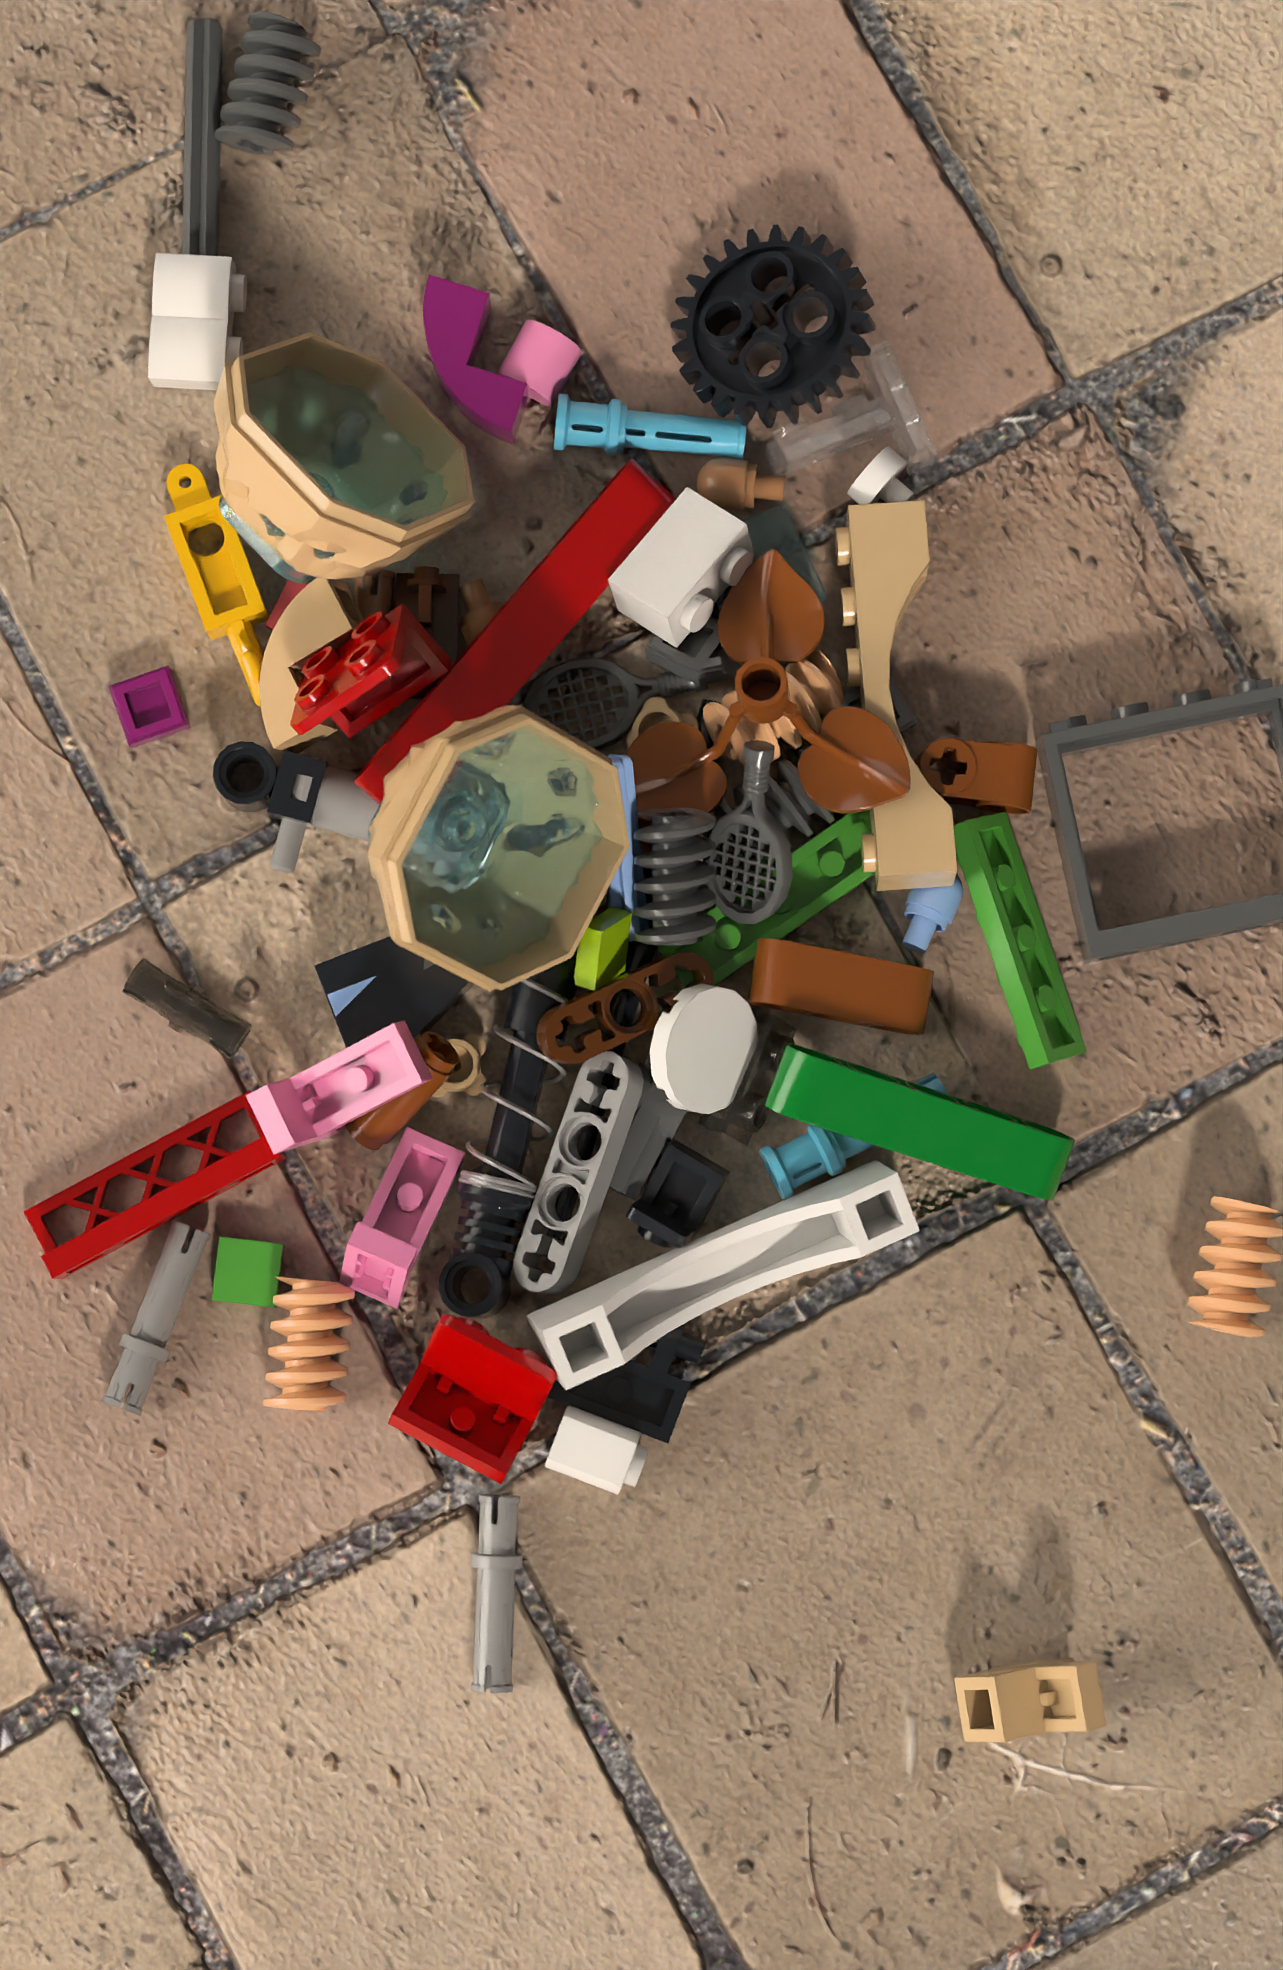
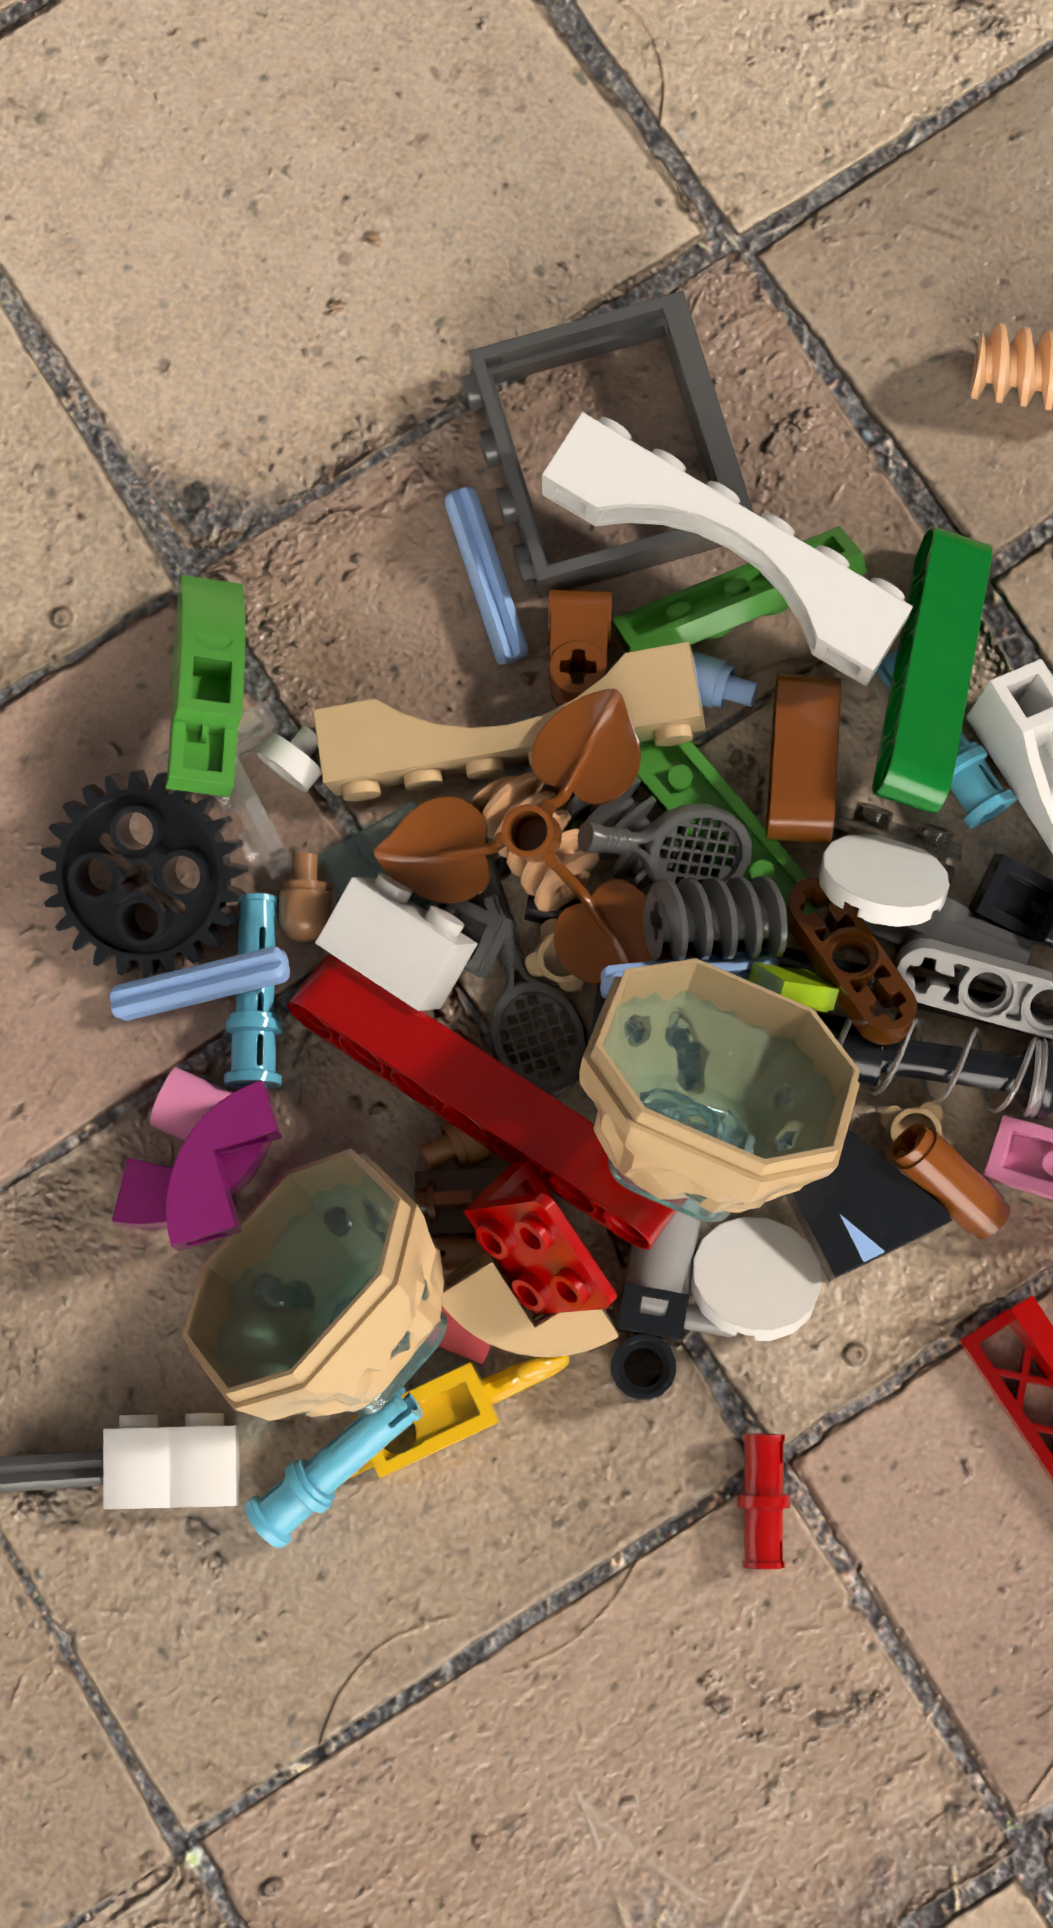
camera: 90 degrees left, 5 degrees down
(111, 883) = (763, 1500): none -> red pin
(149, 706) = (575, 1479): magenta tile -> none
(163, 451) = (312, 1483): none -> medium azure pin
(187, 1008) = (884, 1411): clear smoke pin -> none
(321, 893) = (756, 1278): none -> white tile
(339, 1089) = (962, 1237): bright pink bracket -> none
(448, 355) = (198, 1191): none -> magenta brick
(658, 374) = (199, 983): none -> light blue axle
(957, 395) = (206, 686): none -> bright green slope
(1060, 689) = (486, 575): none -> light blue axle
(1133, 813) = (618, 482): none -> white arch

